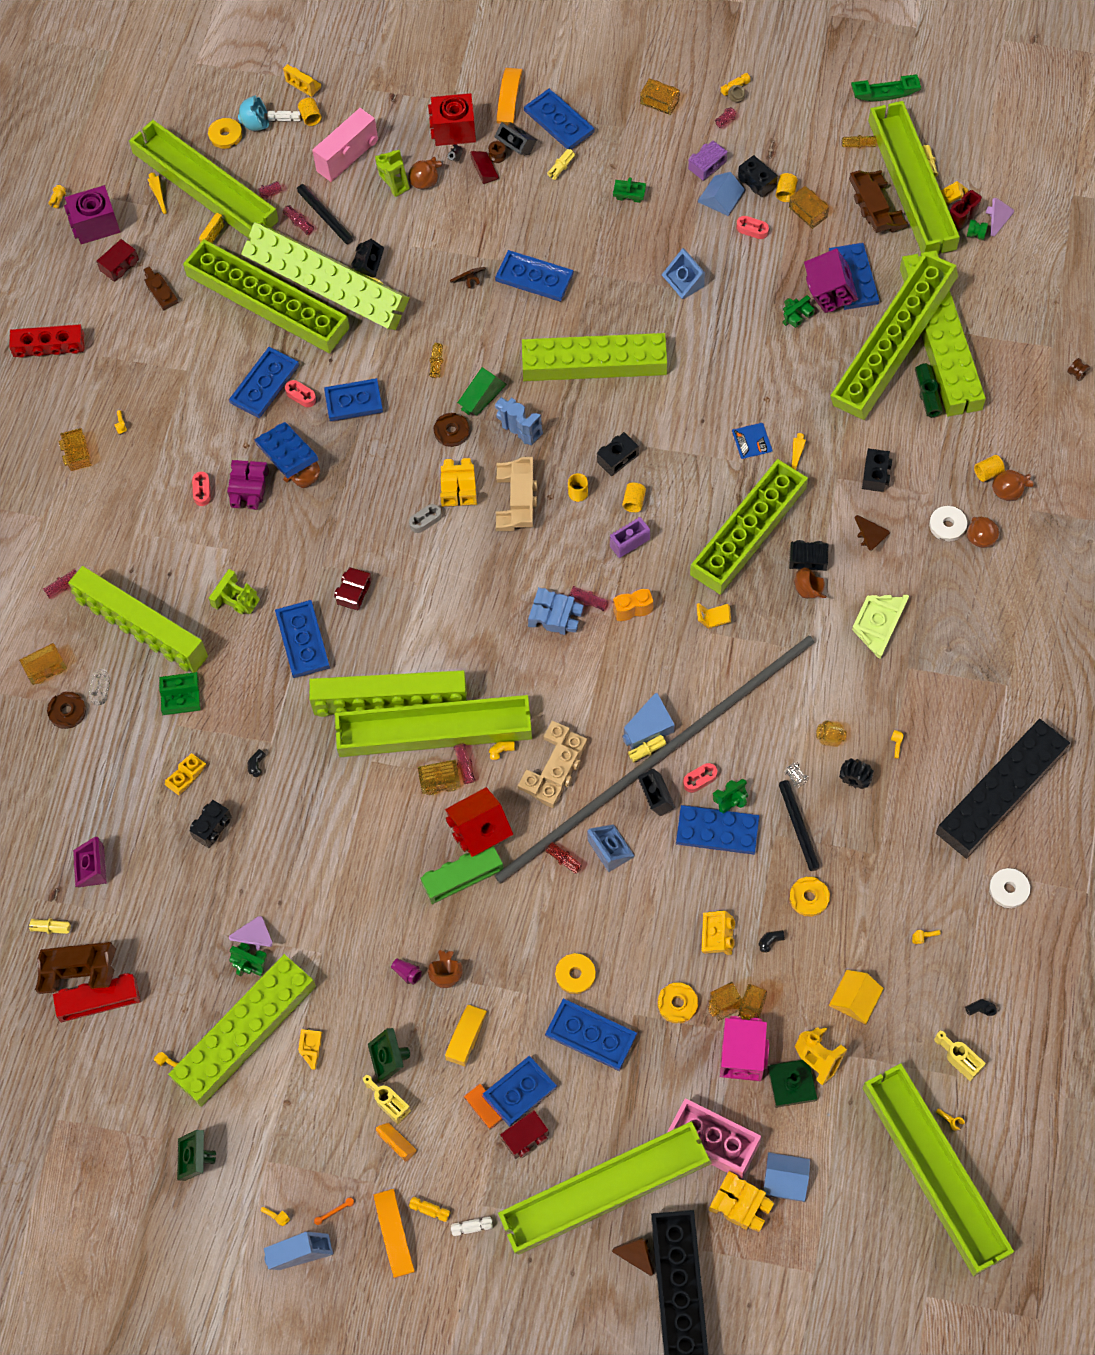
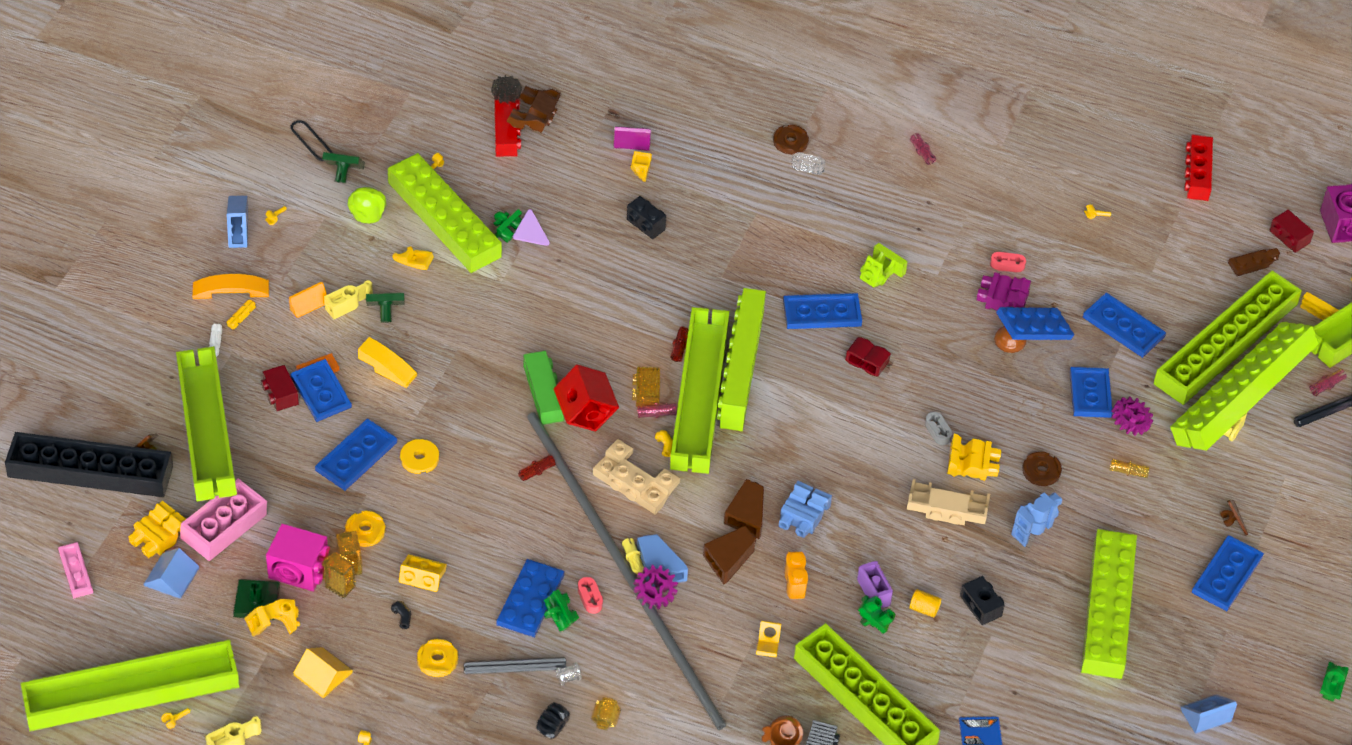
camera: 95 degrees right, 15 degrees down
(43, 664) = (839, 125): clear yellow piece -> none
(49, 926) = (582, 102): light yellow axle -> none
(65, 1000) = (506, 89): none -> clear smoke gear
(75, 449) = (1068, 174): clear yellow brick -> none
(131, 848) = (641, 164): none -> yellow slope
(138, 620) = (866, 190): lime brick -> none
(158, 1215) = (303, 122): none -> black piece
(179, 693) = (787, 218): green slope -> none
(187, 772) = (702, 210): yellow slope -> none
(248, 1114) = (367, 204): none -> helmet
(253, 763) = (703, 259): black arm -> none
(298, 395) = (1108, 355): coral beam -> none
(349, 1202) = (268, 264): orange hinge -> none
(368, 258) = (1268, 428): black brick -> none
(373, 759) = (679, 344): none -> clear red axle
(377, 362) = (1132, 416): none -> magenta gear
(407, 971) = (461, 333): magenta cone -> none
(446, 971) = (451, 357): dark orange hat -> none
(480, 392) = (1081, 496): green slope -> none
(565, 659) = (746, 508): none -> reddish brown slope
(578, 480) = (946, 555): yellow piece -> none
(588, 598) = (815, 542): clear pink pin -> none
(609, 846) = (537, 502): medium blue slope -> none
(621, 665) = (729, 552): none -> reddish brown slope
(656, 792) = (580, 548): black brick -> none
(661, 532) = (873, 614): none -> green hips
(686, 716) = (664, 585): none -> magenta gear
(808, 1277) = (75, 570): none -> bright pink tile

